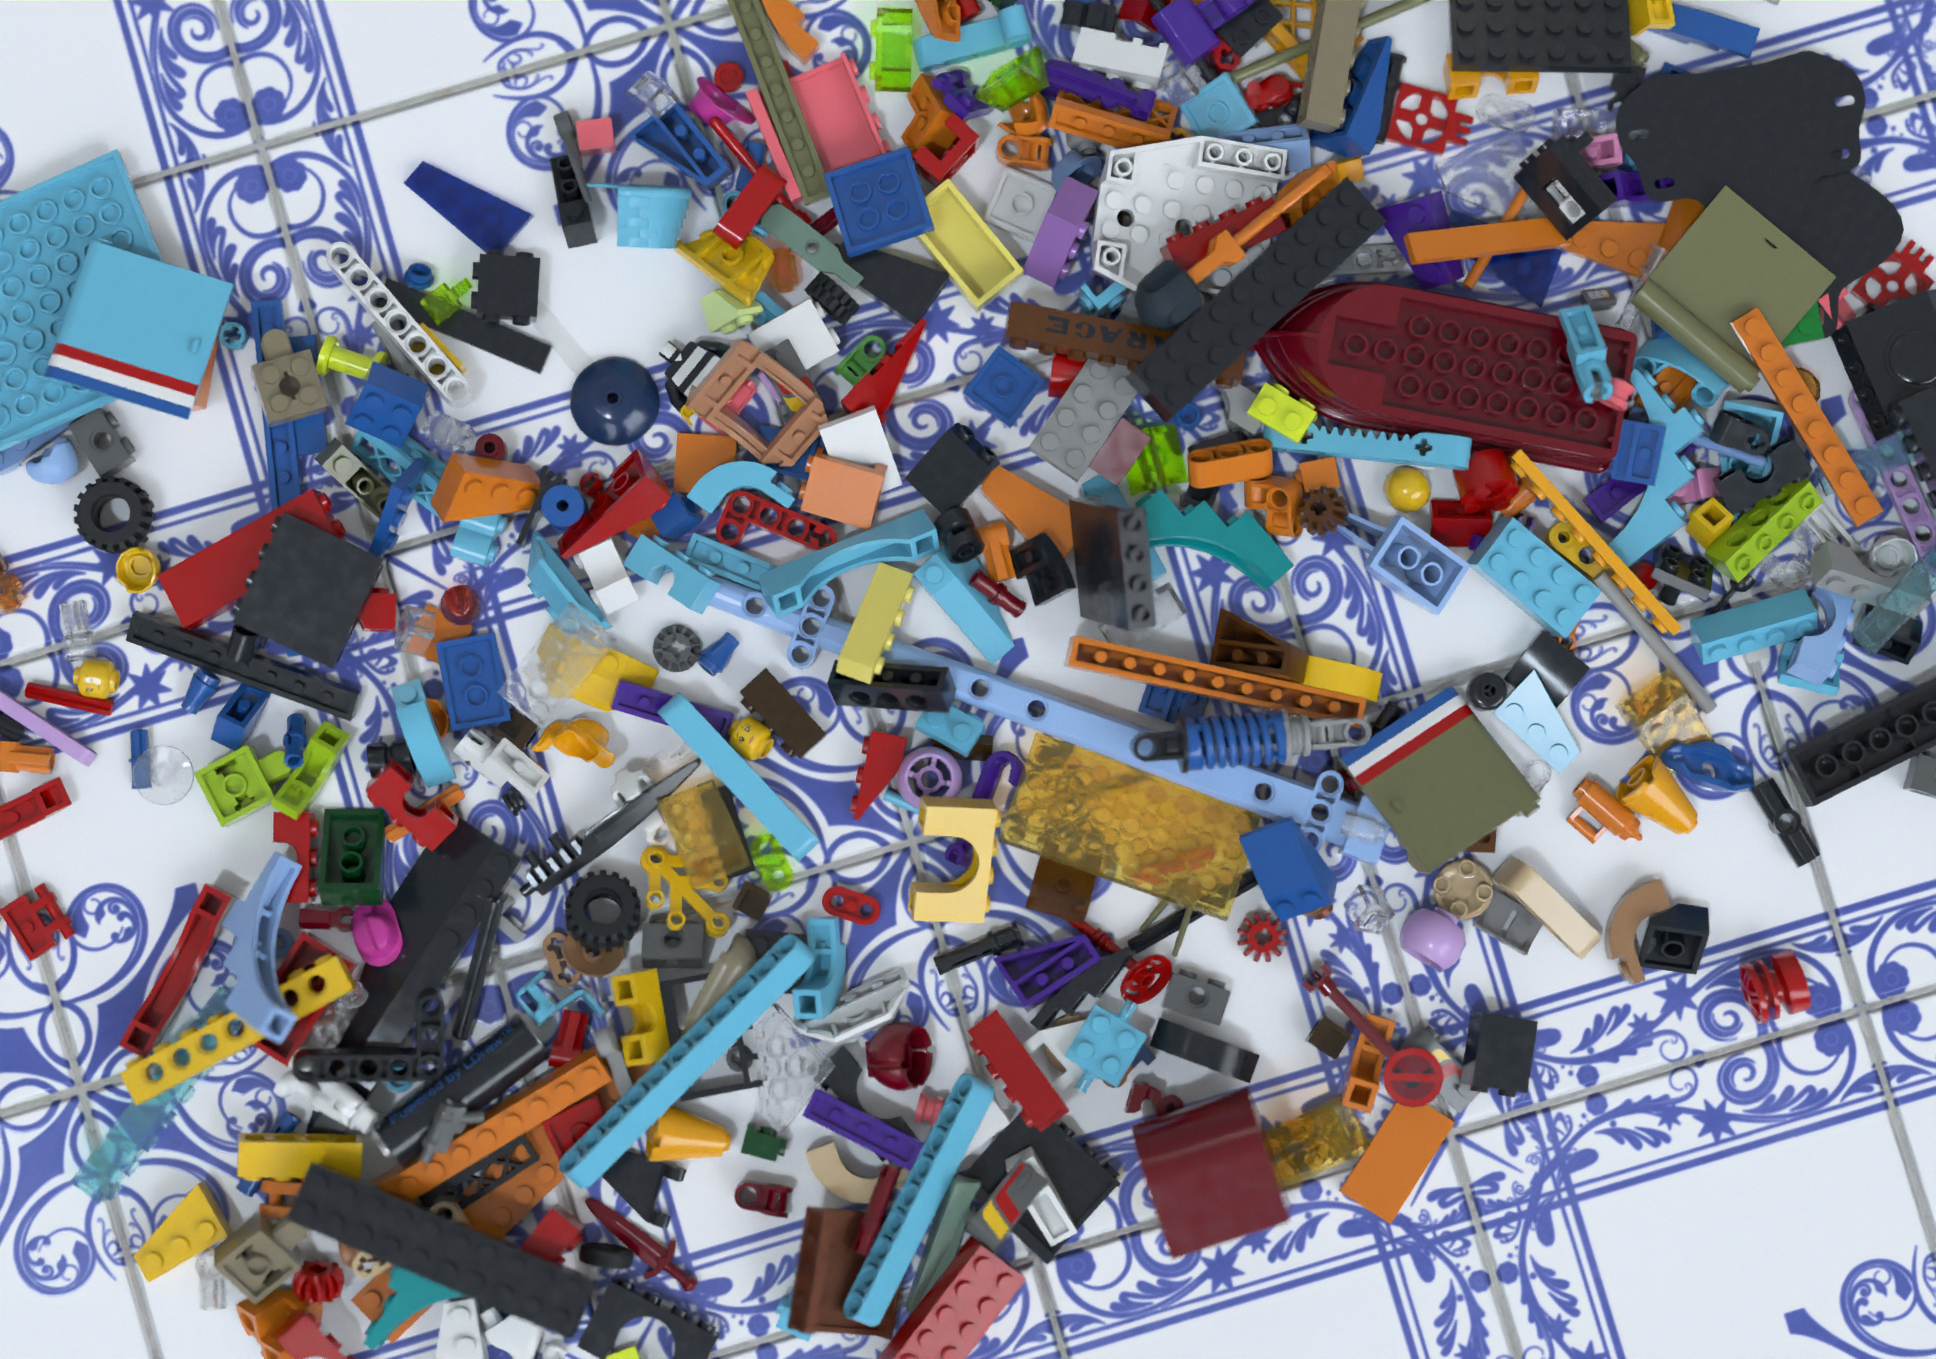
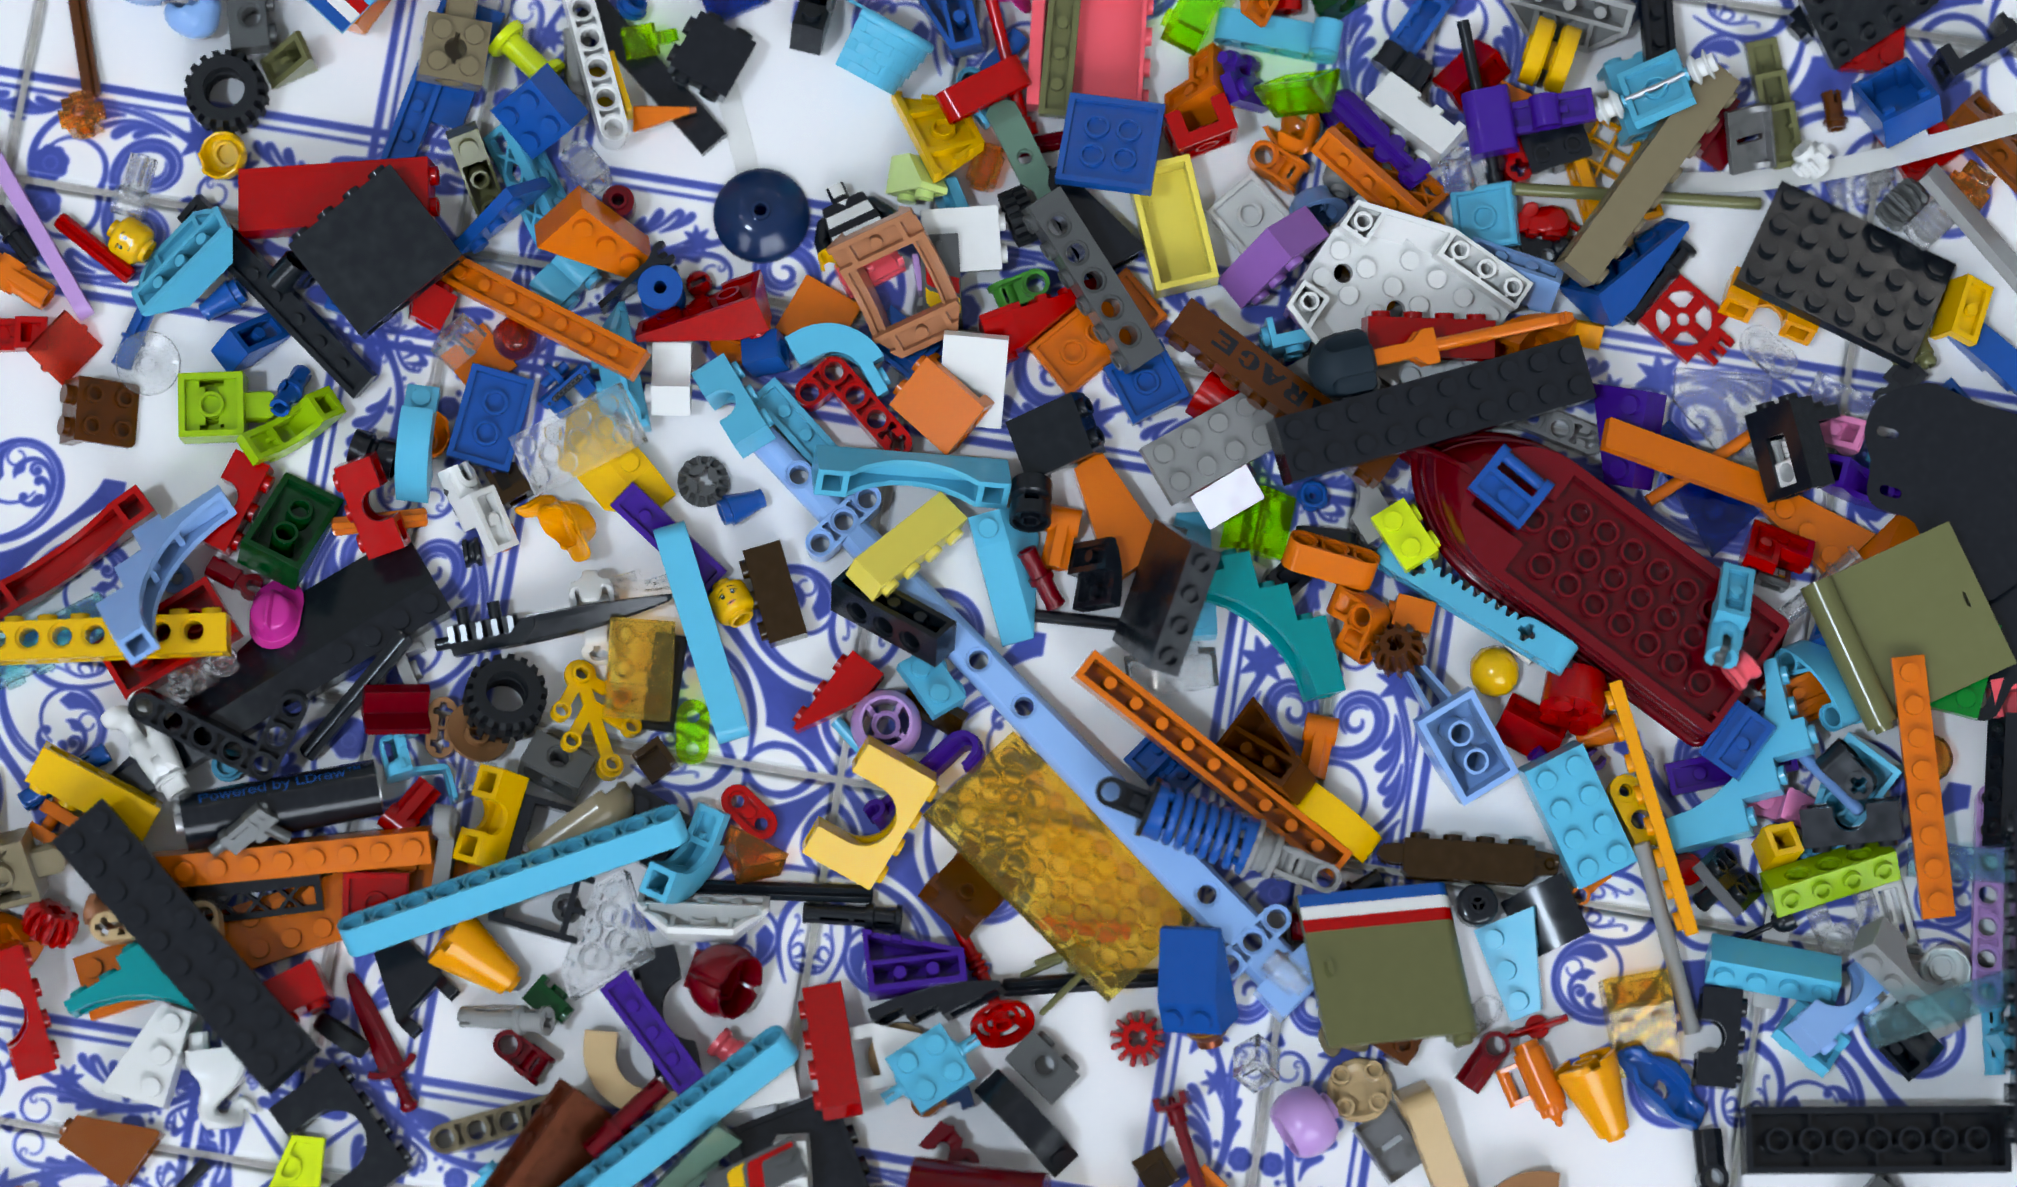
camera: 30 degrees right, 5 degrees down
(86, 796) = (63, 347): none -> clear red piece
(142, 837) = (97, 413): none -> reddish brown bracket
(152, 676) = (185, 263): none -> medium azure wedge
(153, 462) = (288, 61): none -> olive slope
(480, 362) = (650, 116): none -> orange piece
(482, 577) = (548, 319): none -> orange plate
(517, 965) = (396, 709): none -> dark red panel
(528, 613) = (577, 378): none -> blue hips
(746, 1172) = (518, 1019): none -> light grey pin
(767, 1266) = (492, 1121): none -> dark tan beam
(871, 942) = (752, 857): none -> clear orange slope
(916, 954) = (791, 891): none -> black axle
(942, 364) = (1074, 353): none -> orange tile
(988, 356) = (1109, 288): none -> dark grey brick
(1042, 613) = (1075, 619): none -> black bar
(1290, 615) = (1318, 738): none -> orange piece
(1354, 342) = (1503, 494): none -> blue plate
(1463, 658) = (1468, 861): none -> dark brown hinge
(1553, 820) = (1481, 1064): none -> dark red piece
(1583, 766) = (1538, 1026): none -> red piece
(1586, 276) = (1773, 547): none -> red panel
(1731, 679) = (1724, 1009): none -> black arch

